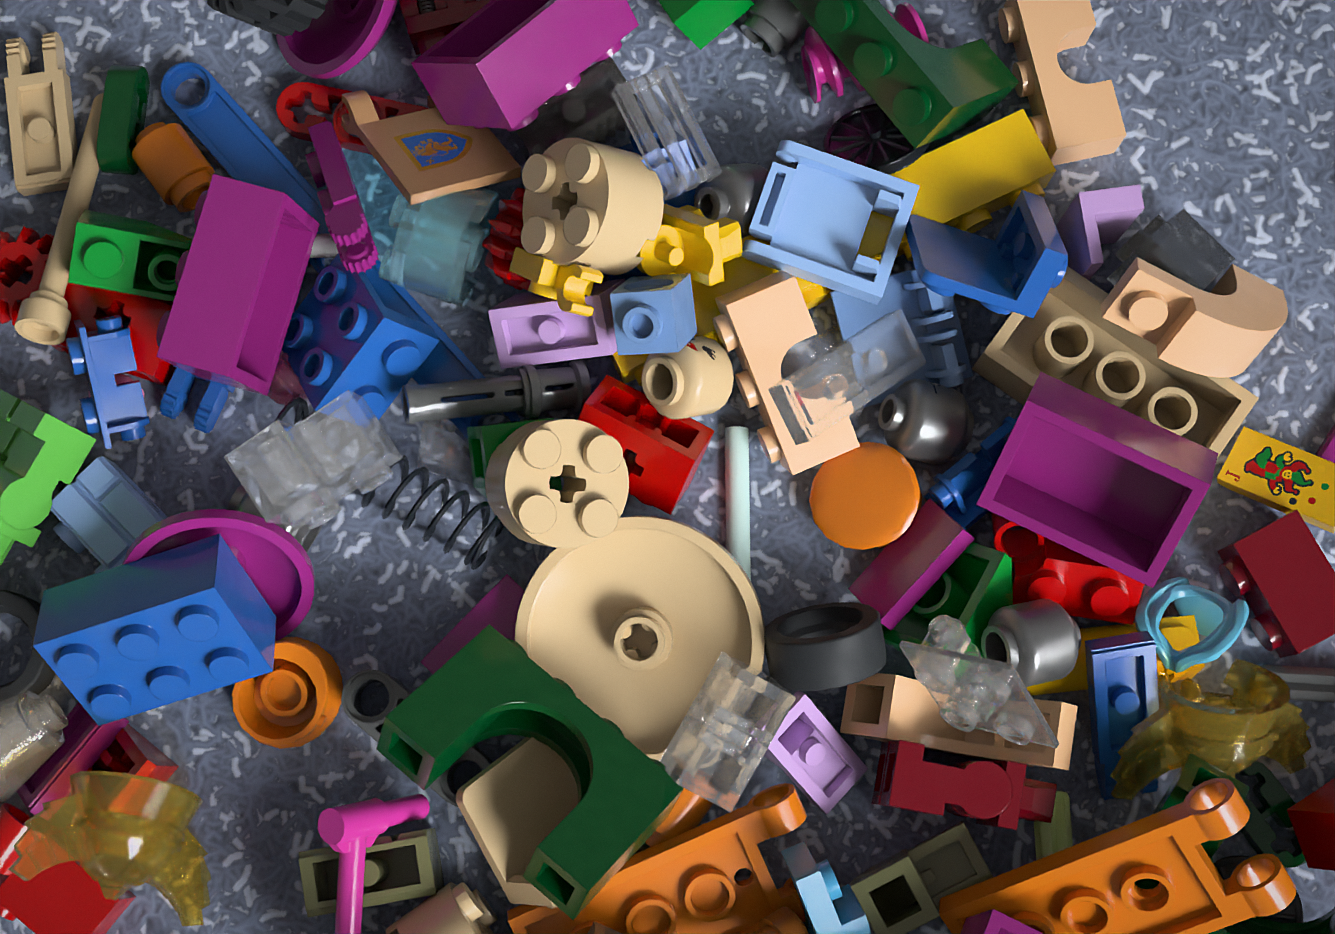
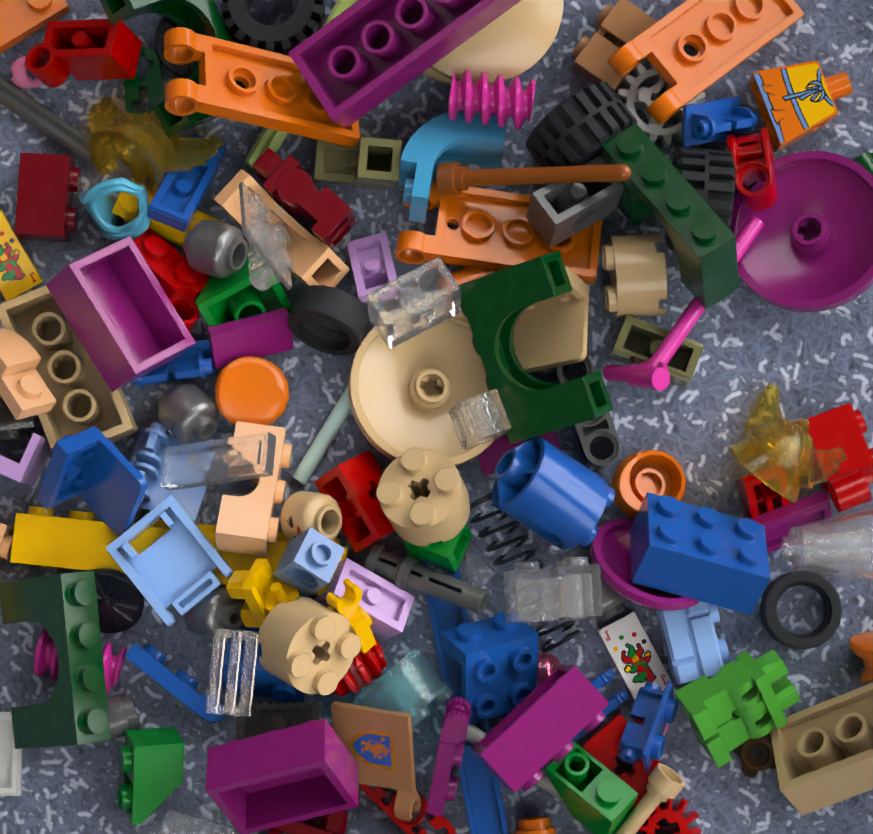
camera: 150 degrees left, 5 degrees up
(180, 464) = (633, 654): none -> white tile
(398, 593) = (550, 493): none -> blue cylinder
(546, 630) = (479, 419): none -> clear brick
(727, 94) = (178, 684): none -> blue hinge

